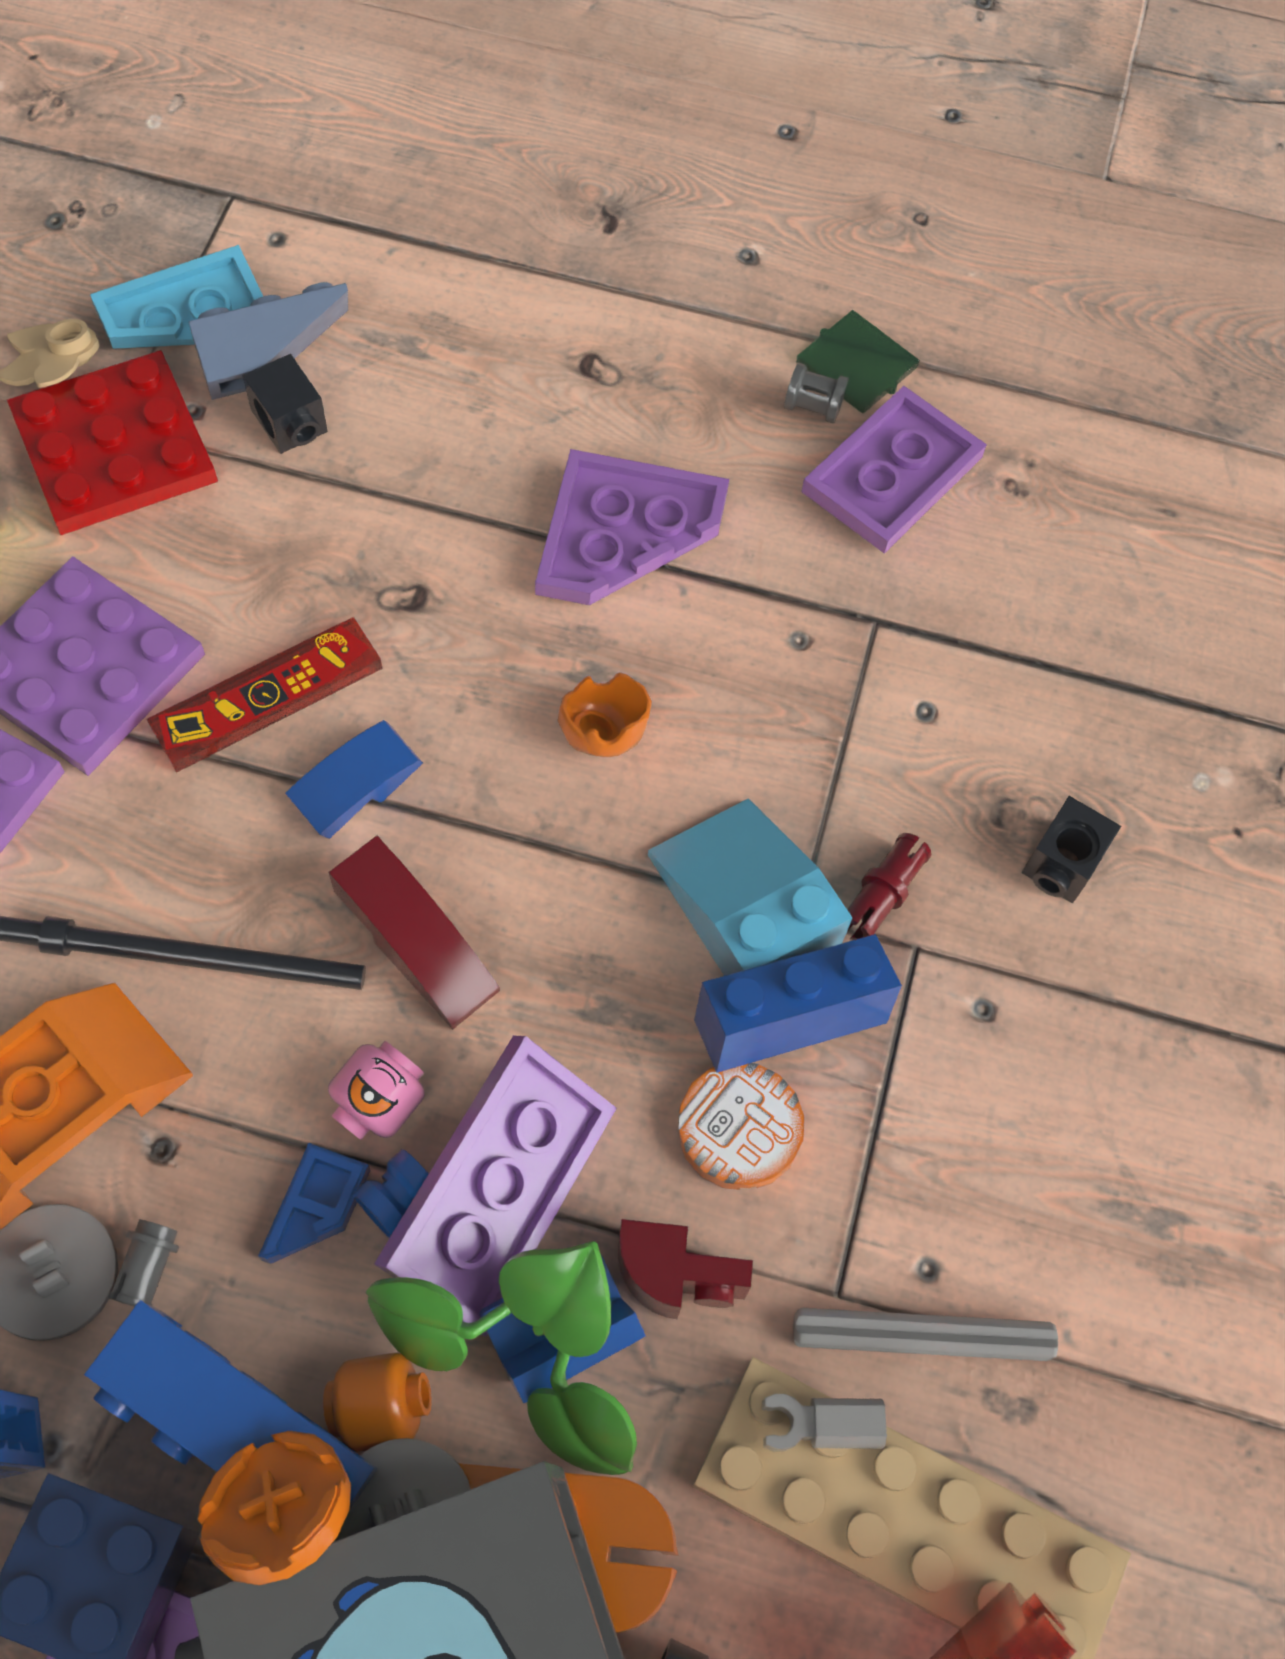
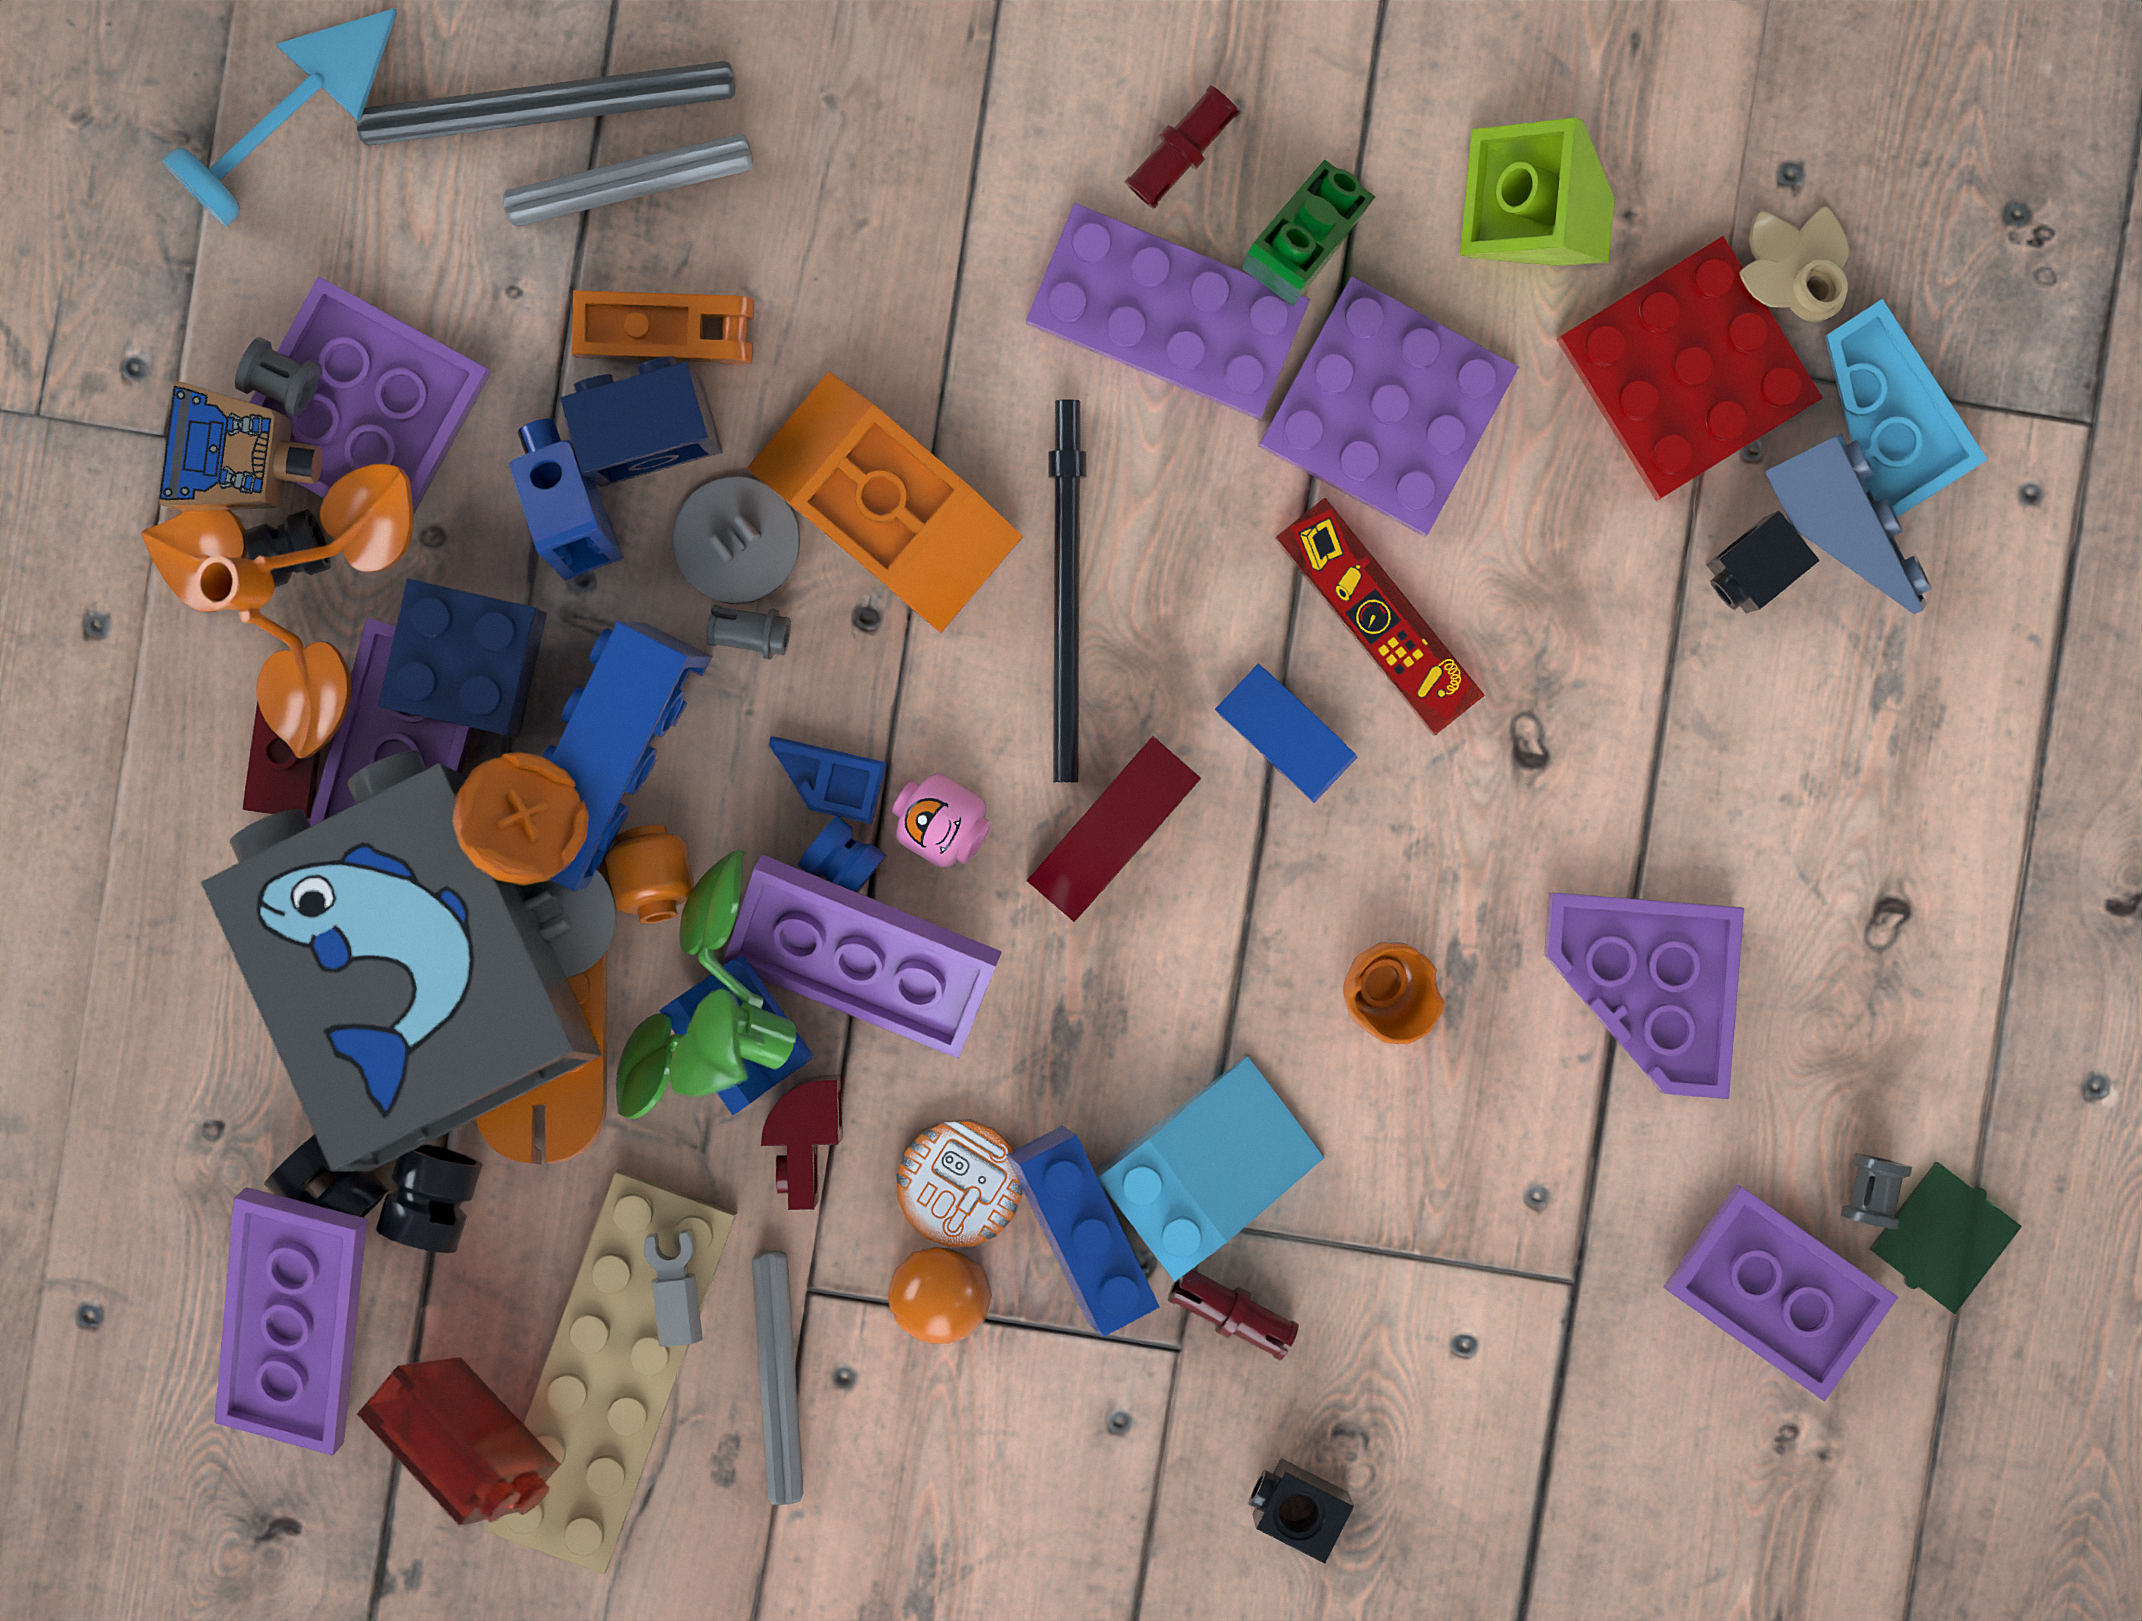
camera: 90 degrees right, 25 degrees up
(851, 1159) = (939, 1295): none -> orange hair

